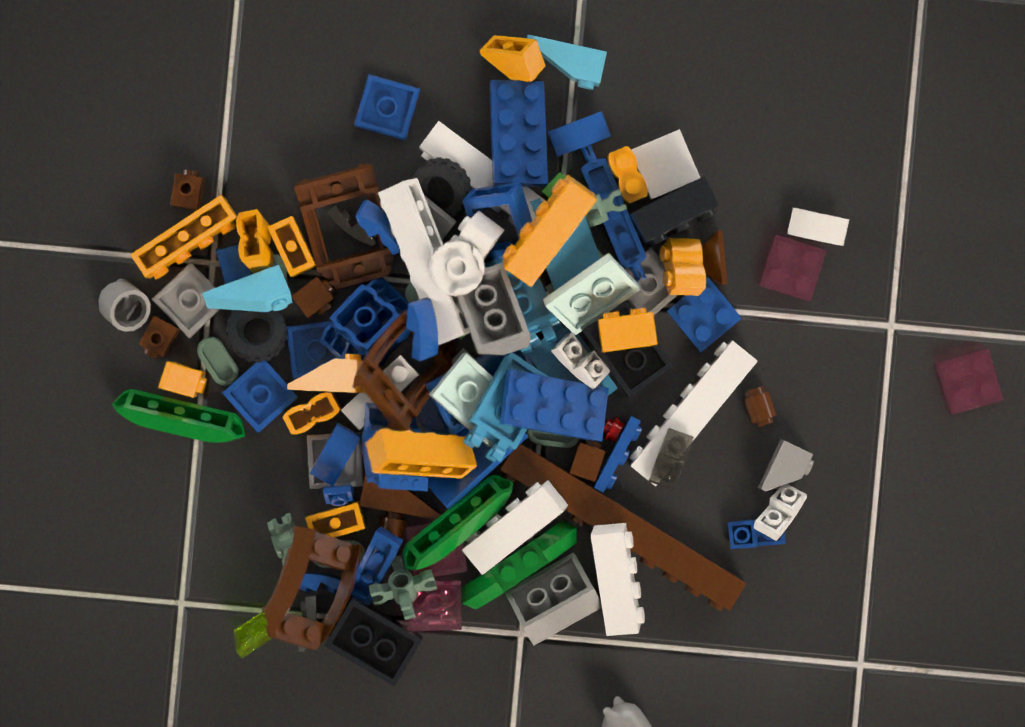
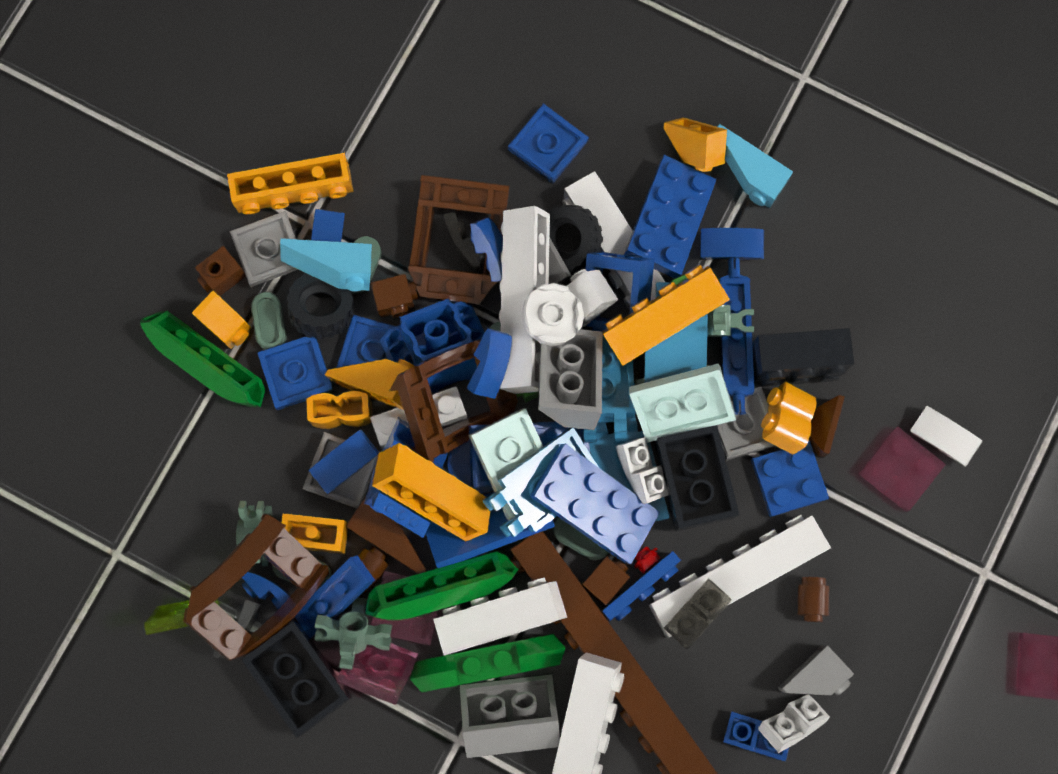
camera: 20 degrees right, 10 degrees down
(119, 301) = (196, 221): light grey piece -> none
(187, 190) = (314, 140): reddish brown brick -> none
(254, 241) = (358, 212): light orange brick -> none
(292, 246) = (393, 235): light orange brick -> none
(339, 495) = (329, 505): blue slope -> none
(627, 331) = (705, 455): light orange brick -> none
(629, 180) = (765, 295): light orange brick -> none
(665, 164) = (807, 306): white tile -> none

